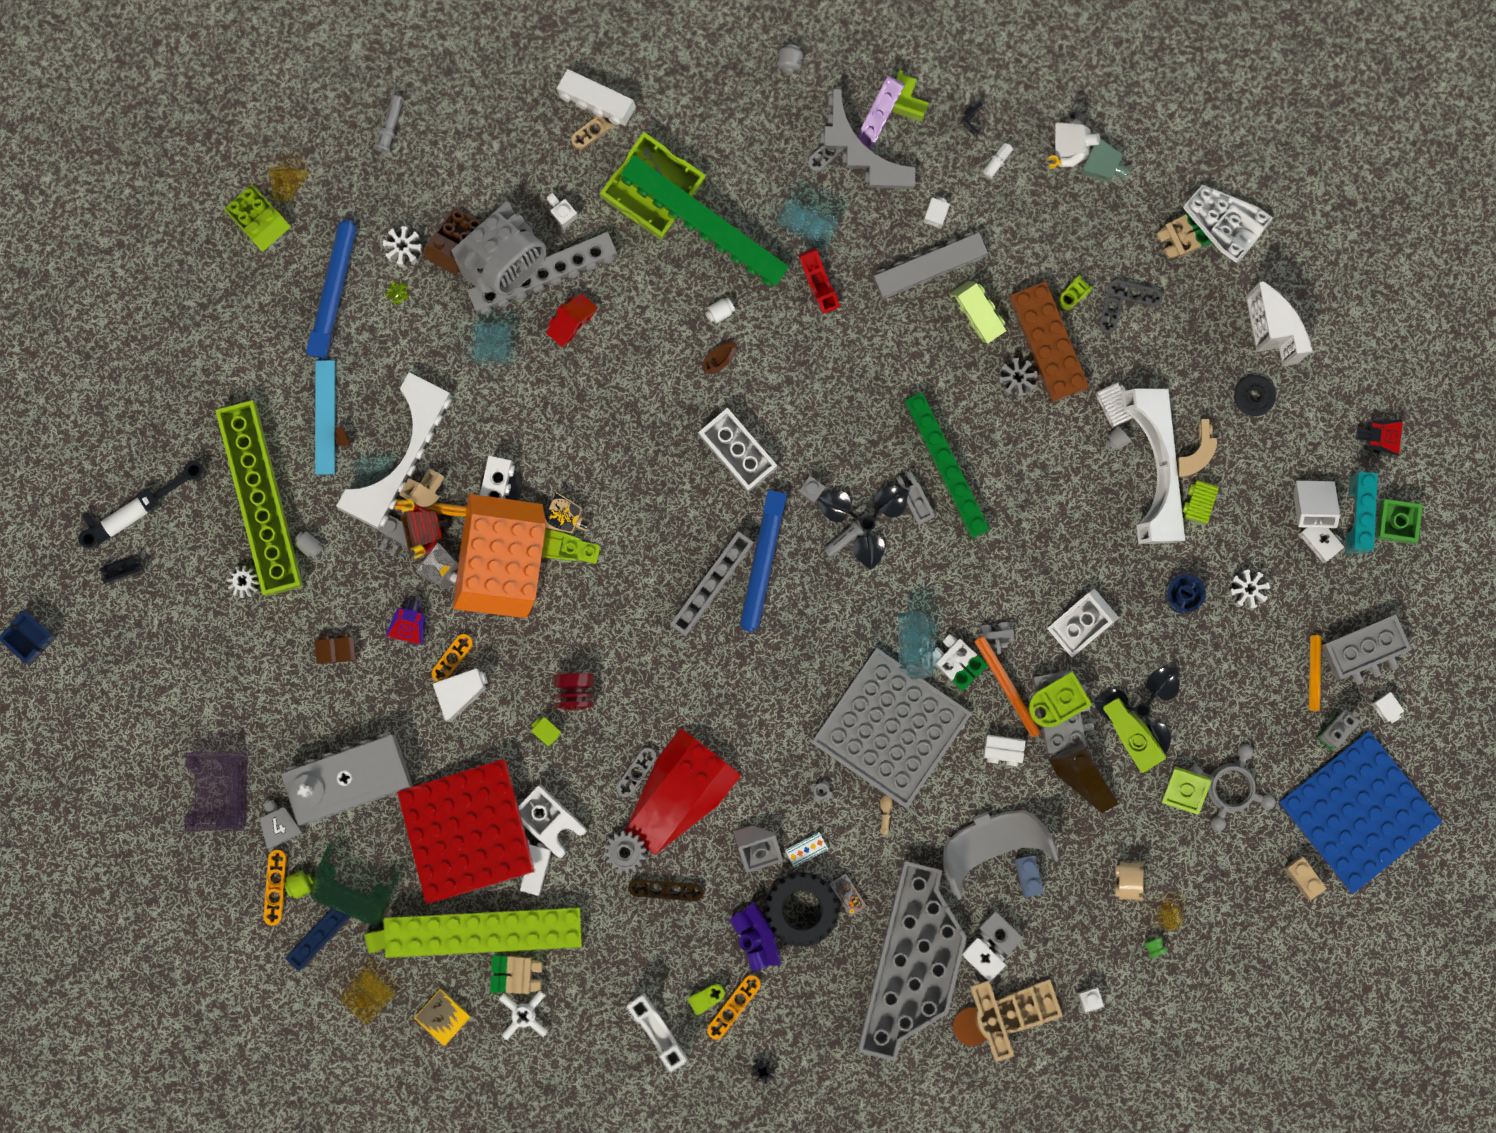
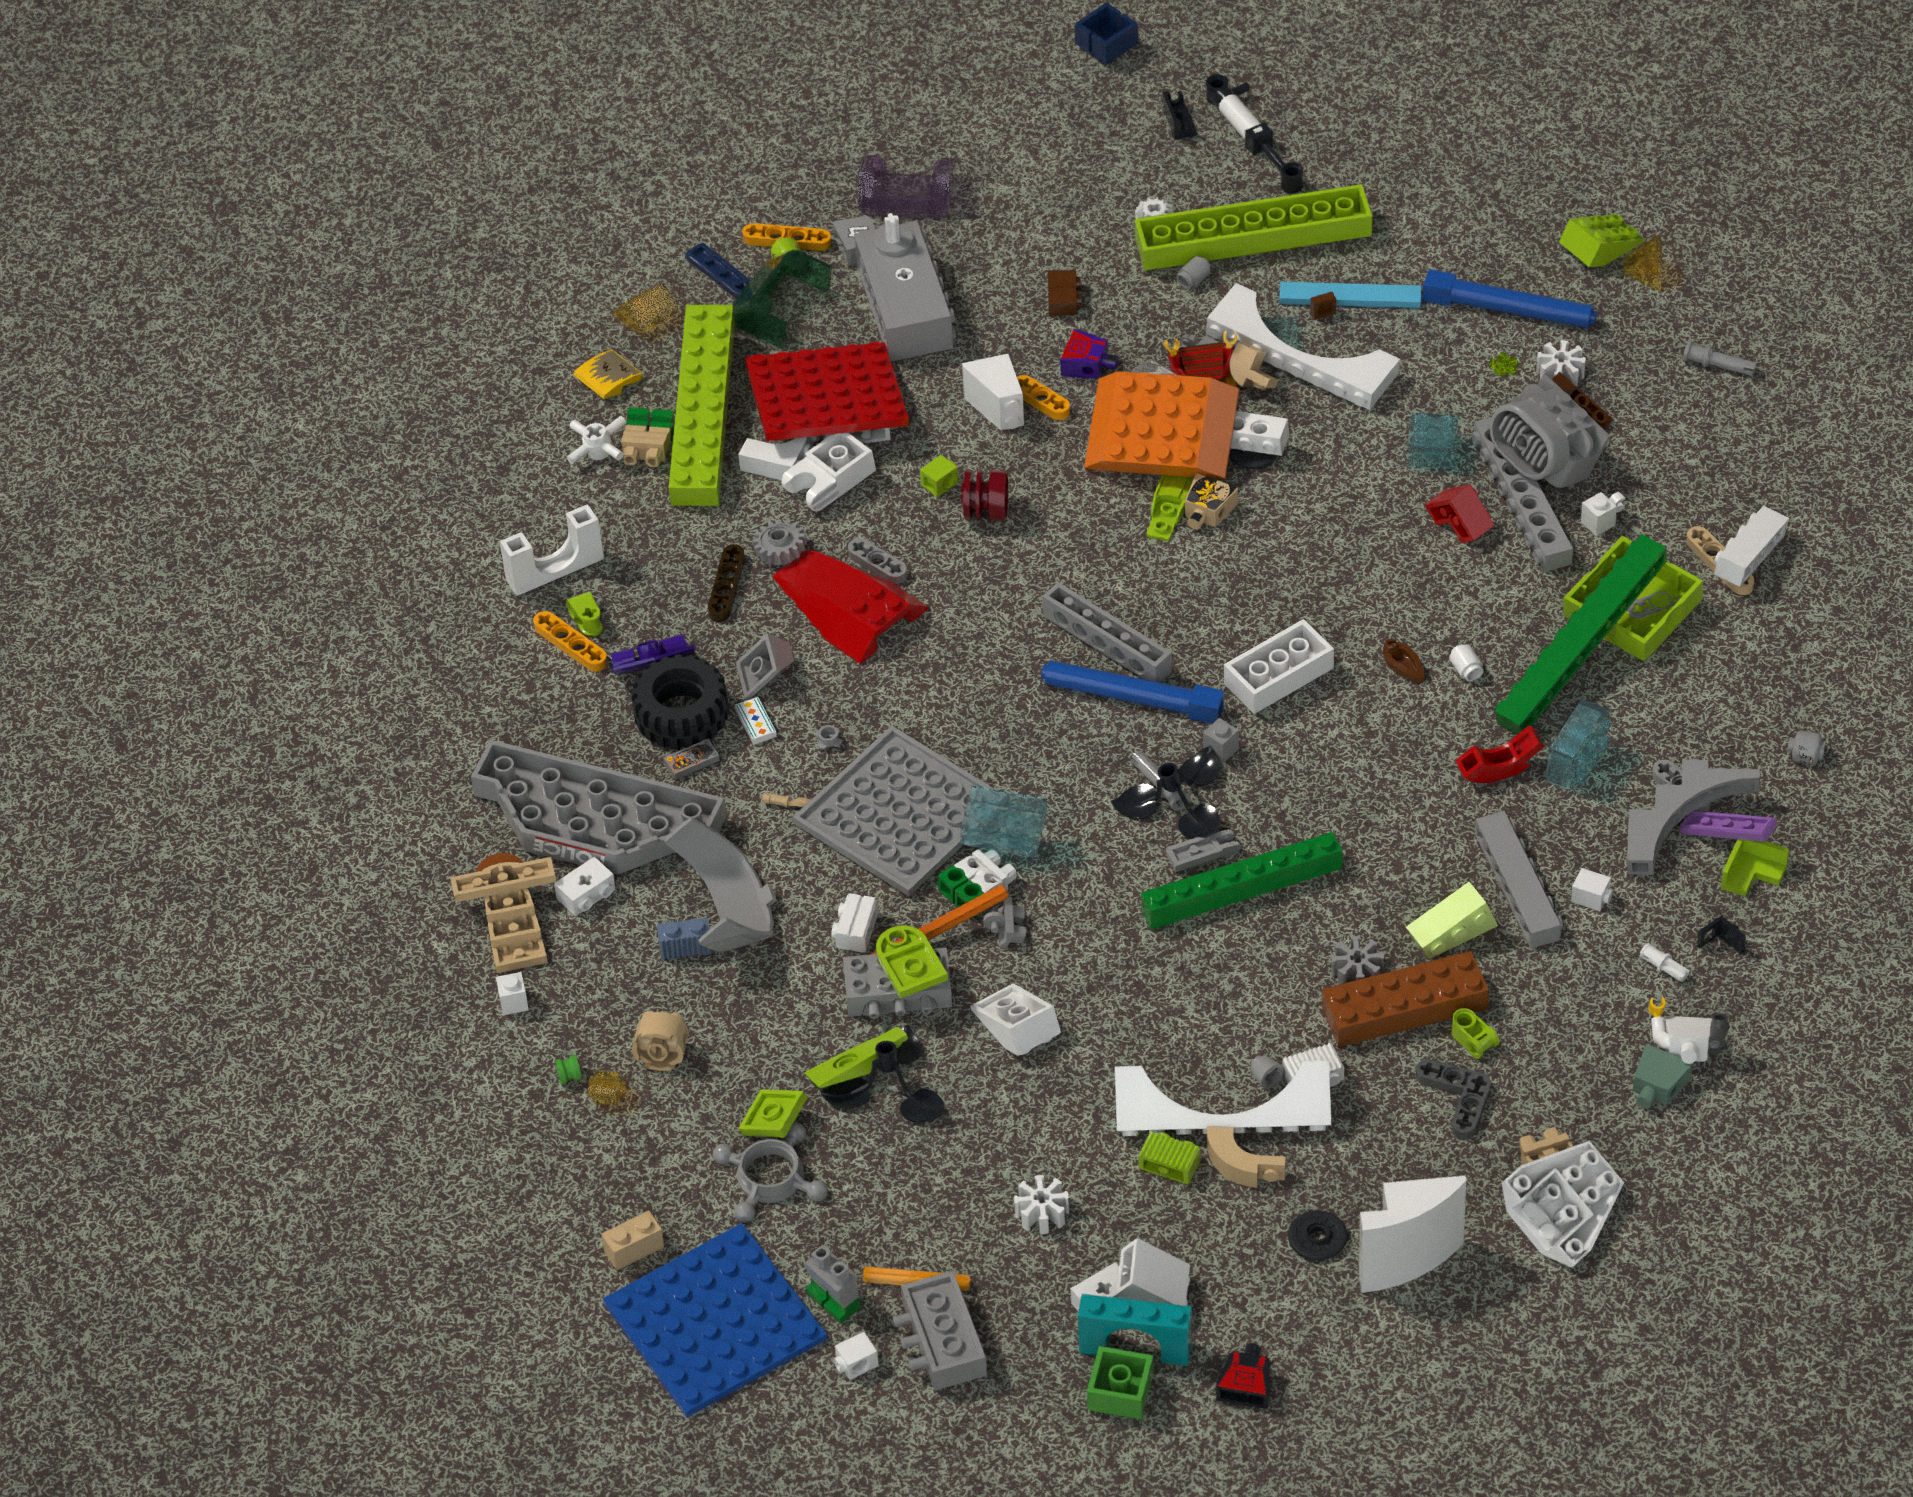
camera: 100 degrees right, 35 degrees down
(764, 1077) = (484, 661): black gear -> none
(1011, 938) = (615, 906): light grey brick -> none
(1080, 772) = (811, 995): dark brown wedge -> none
(1184, 594) = (1042, 1126): dark blue brick -> none

